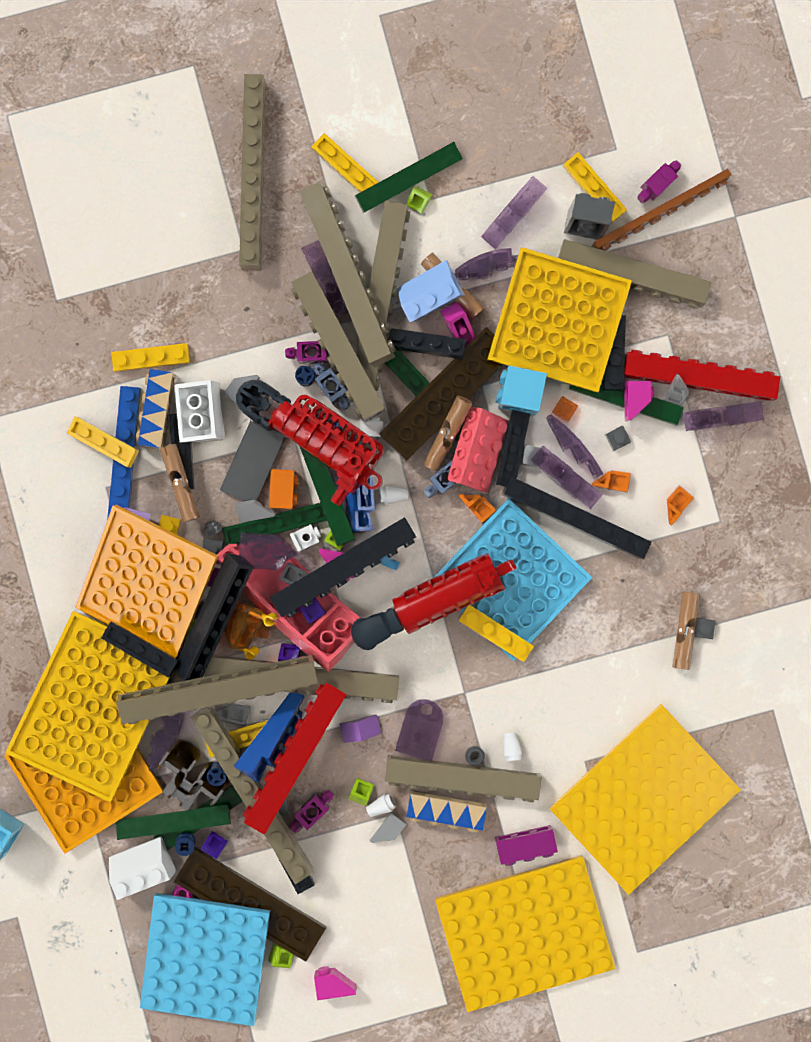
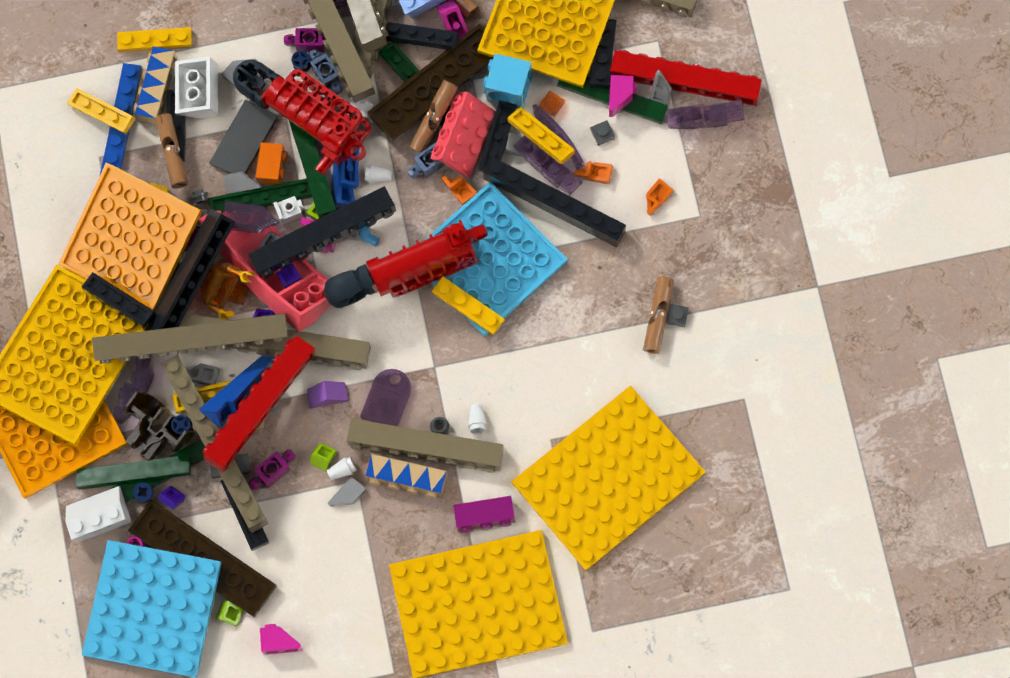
camera: 15 degrees right, 15 degrees down
(559, 450) = (541, 135): none -> yellow plate

